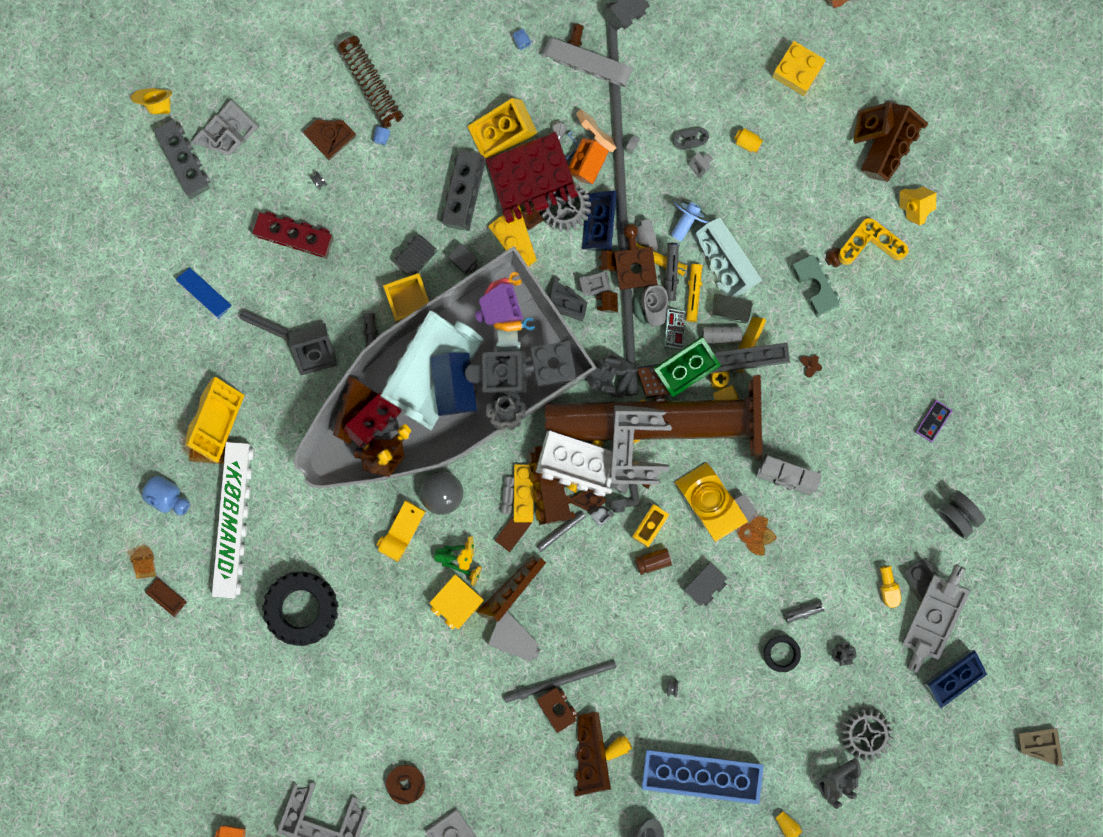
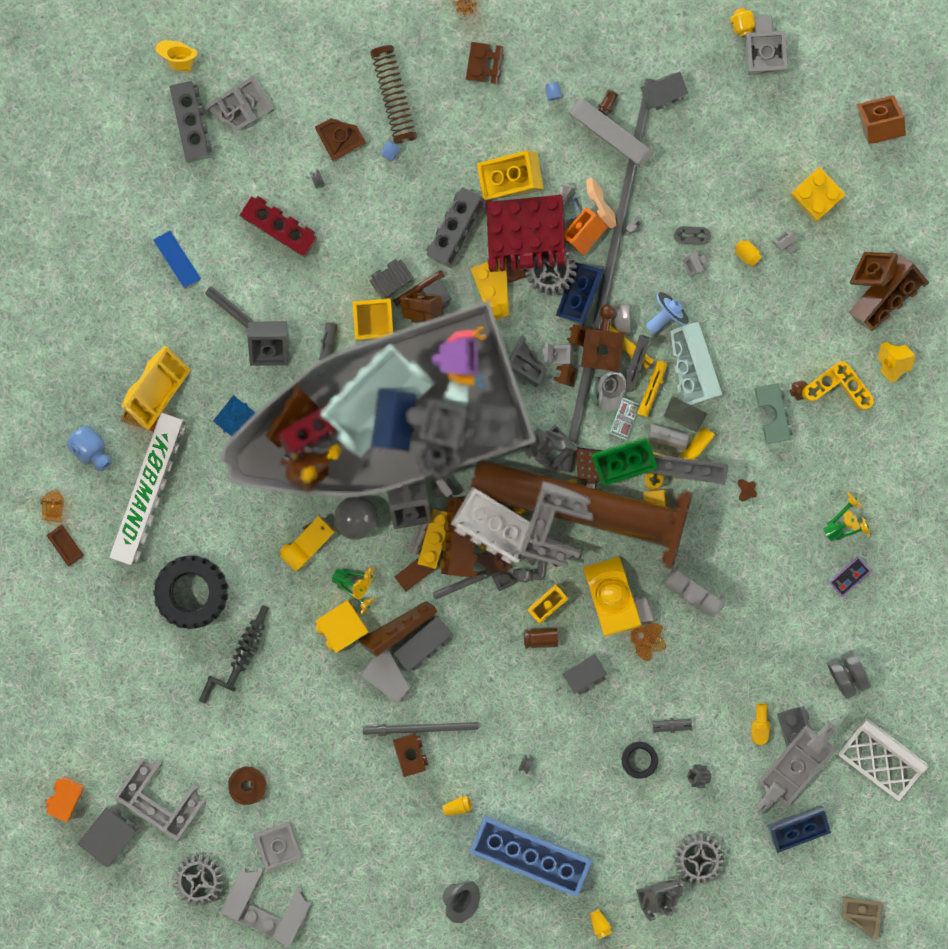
camera: 20 degrees right, 5 degrees up
(296, 427) = (233, 416): none -> piece
(367, 661) = (241, 659): none -> pearl dark grey piece
(442, 259) = (419, 287): none -> reddish brown bar
(443, 31) = (478, 62): none -> reddish brown plate
(450, 273) = (421, 307): none -> reddish brown brick
(491, 467) = (409, 506): none -> dark grey hinge
(520, 440) = (445, 486): none -> light grey tile
(541, 598) = (423, 644): none -> dark grey brick
(592, 766) = (430, 813): reddish brown wing -> none
(781, 120) = (785, 241): none -> light grey tile
(906, 381) = (835, 530): none -> plant
(1023, 573) = (891, 745): none -> white fence

